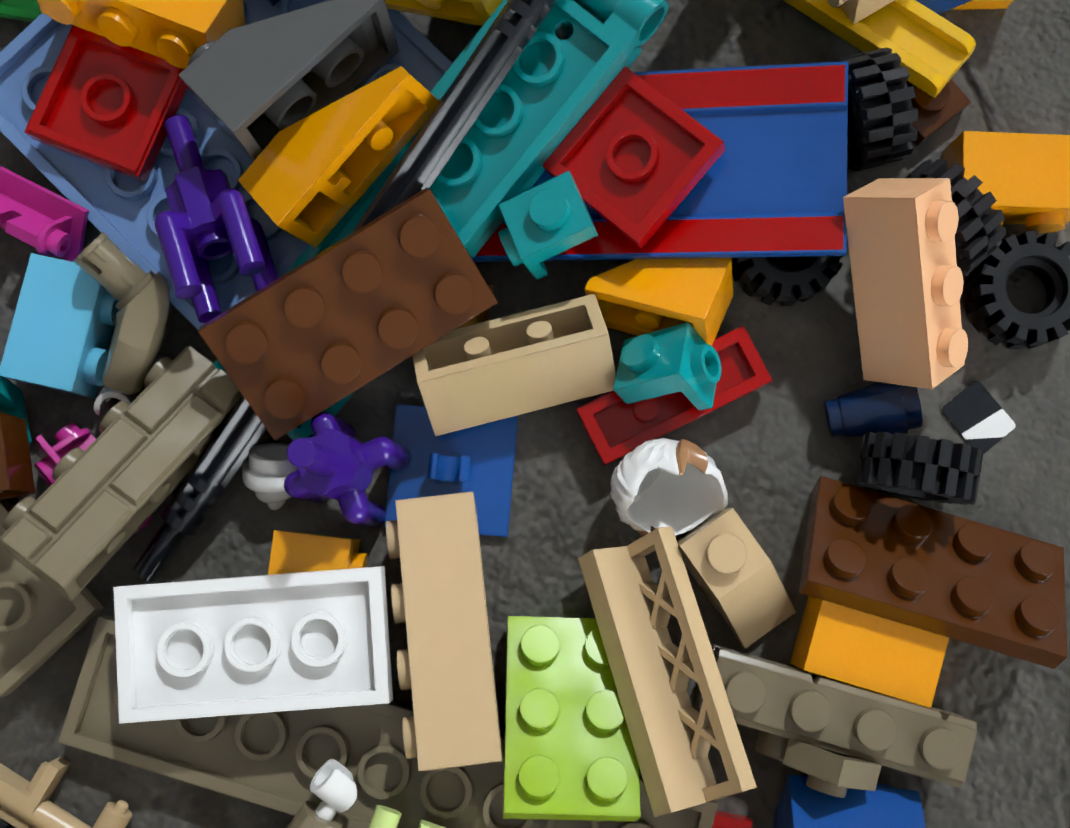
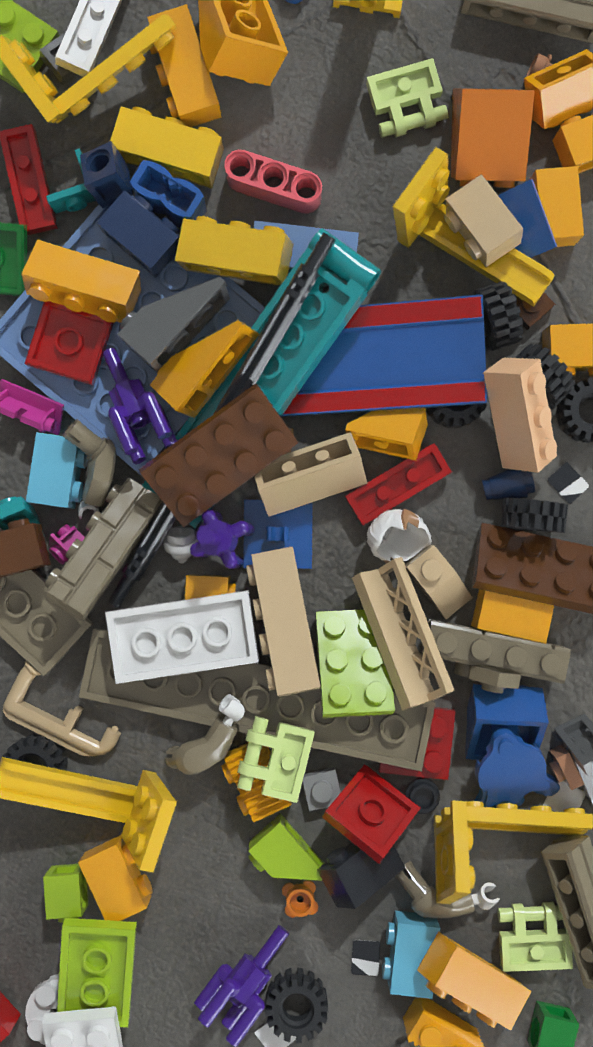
camera: 10 degrees left, 5 degrees up
(545, 223) = (321, 396): teal bracket -> none
(635, 156) = (367, 355): red plate -> none
(666, 364) = (394, 468): teal bracket -> none

